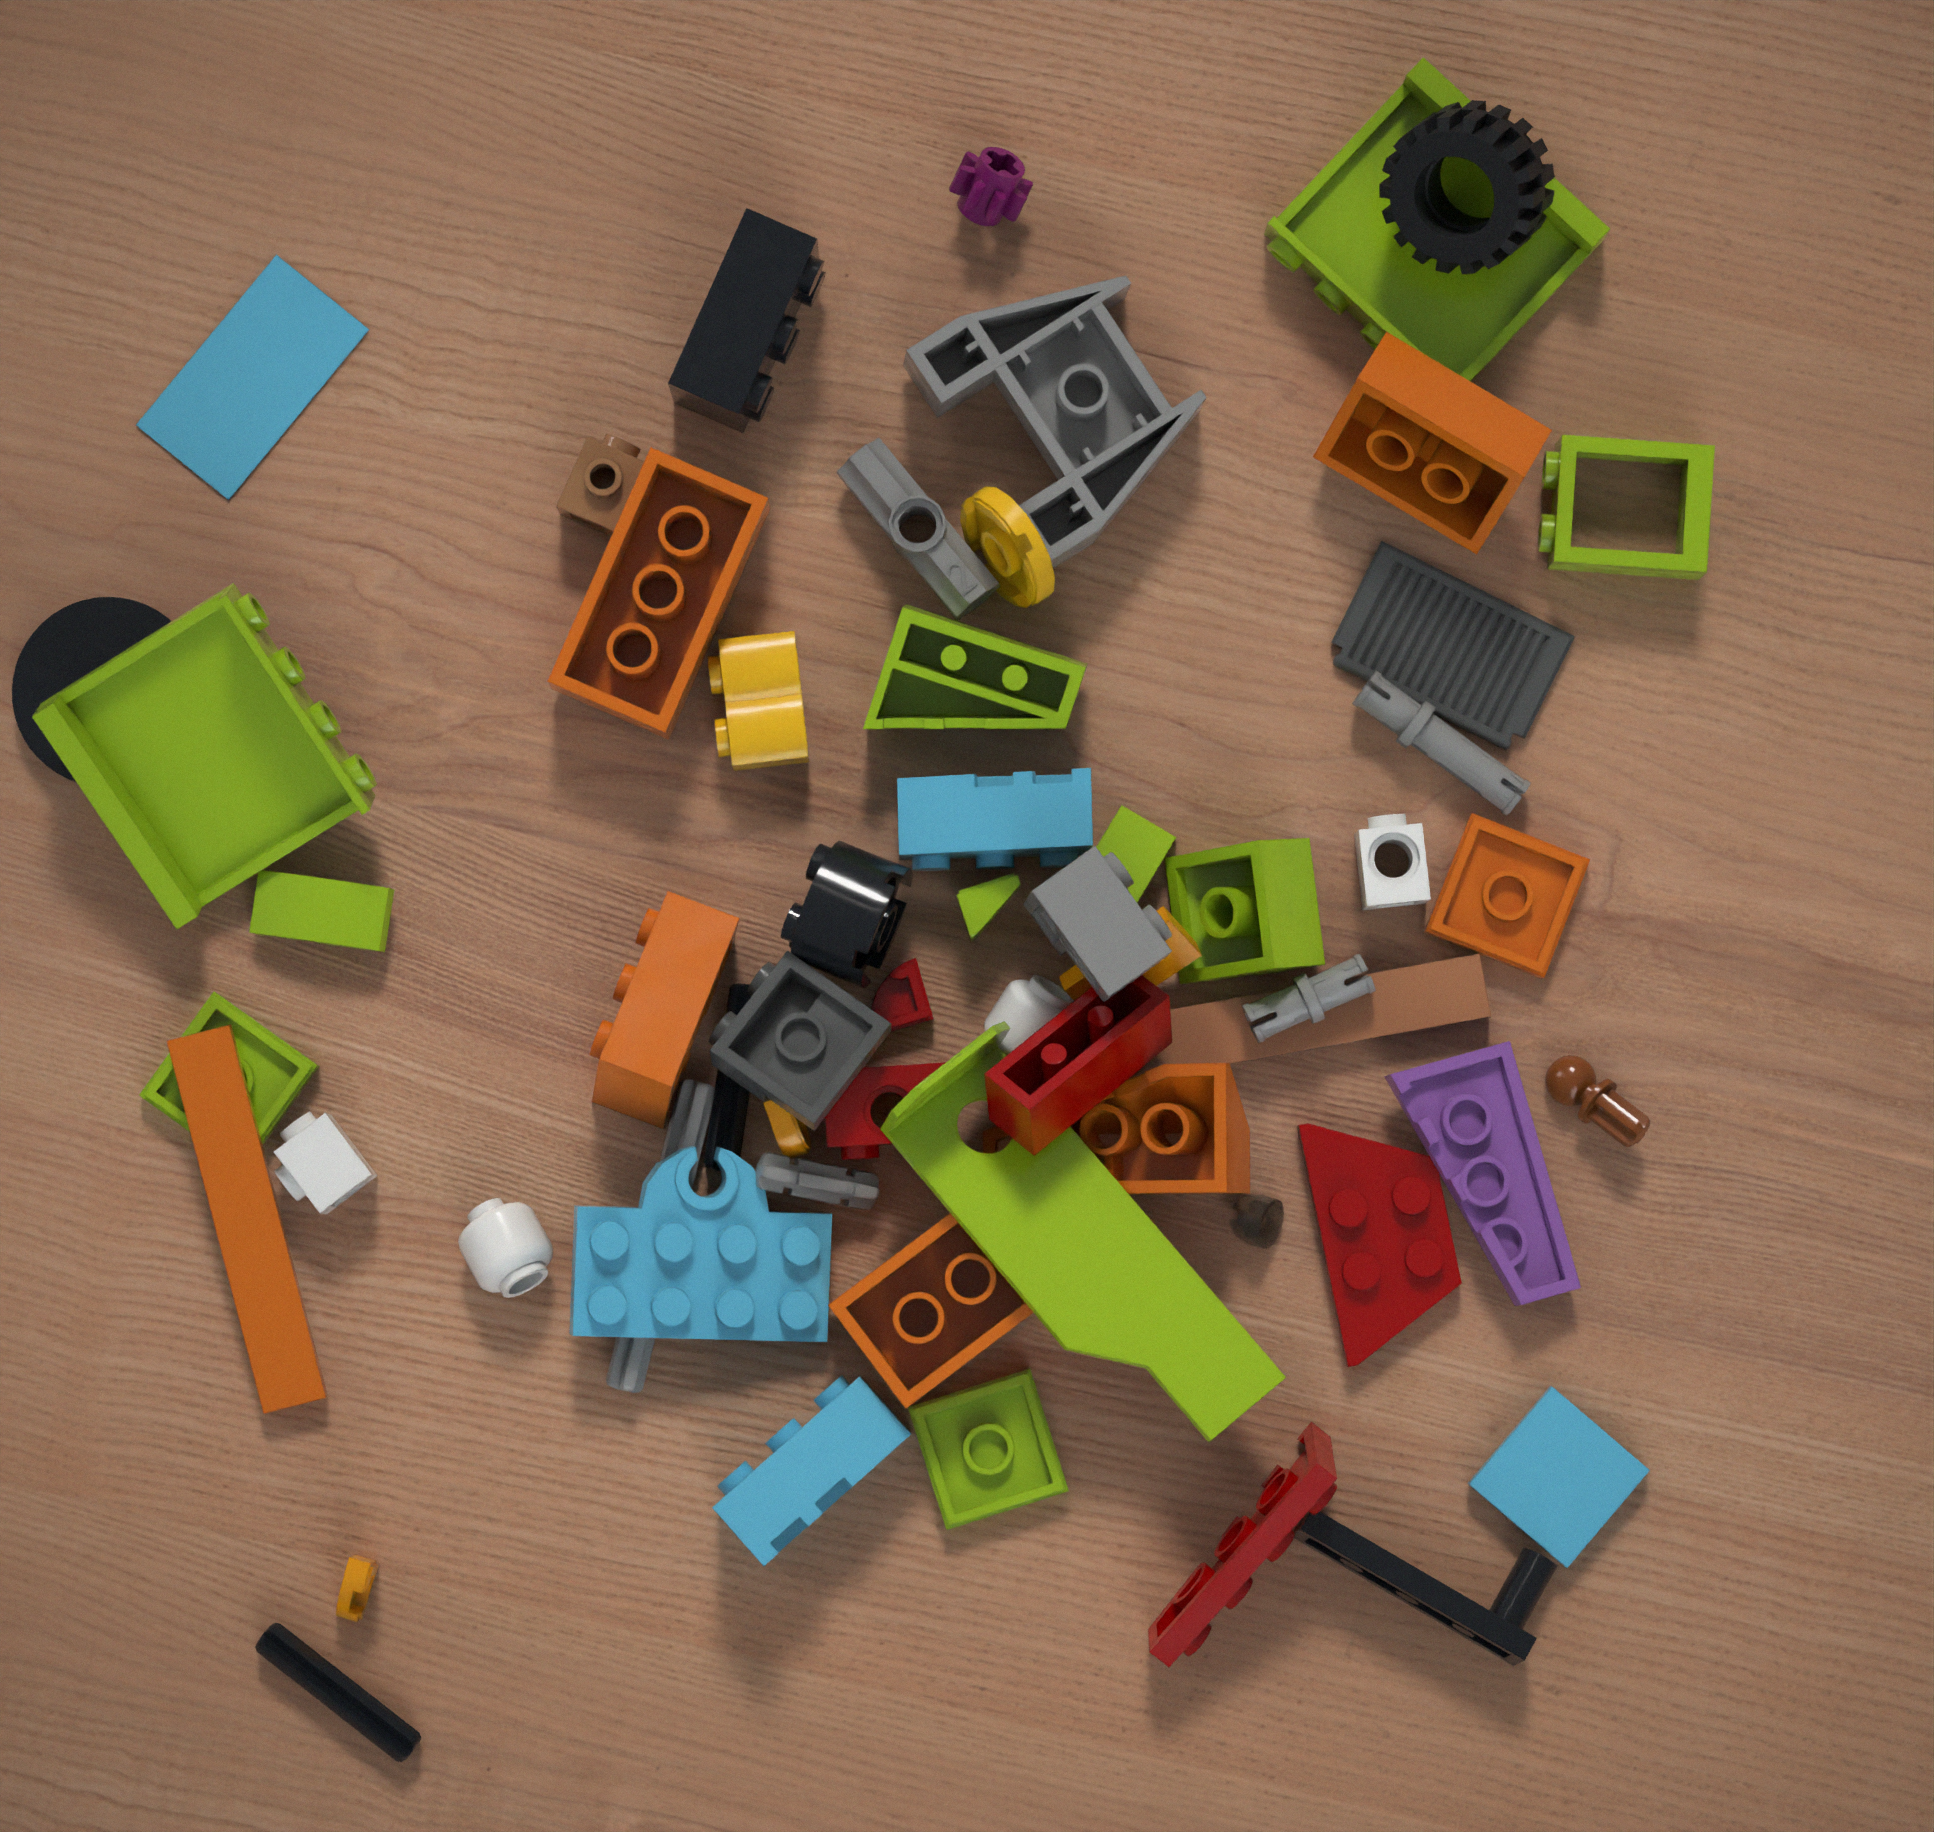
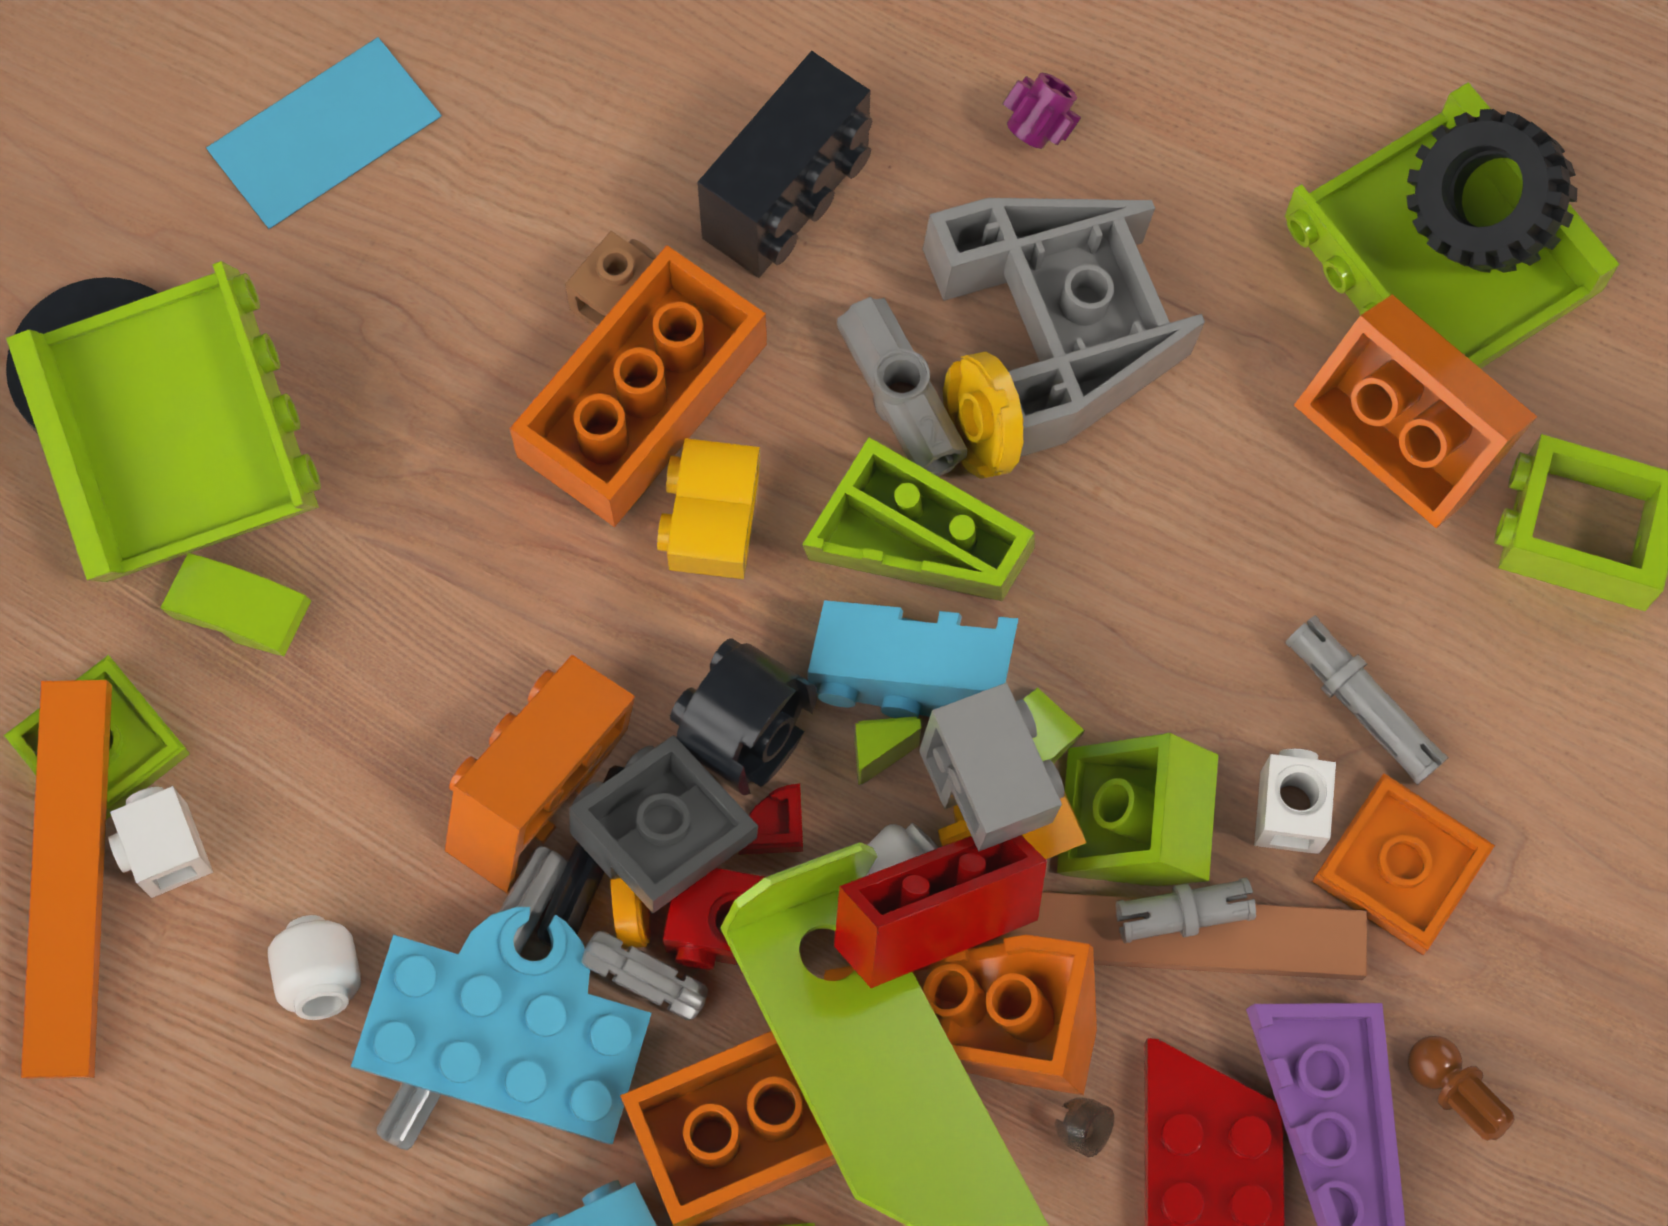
camera: 15 degrees right, 15 degrees down
(1450, 646) = (1403, 619): dark grey window -> none

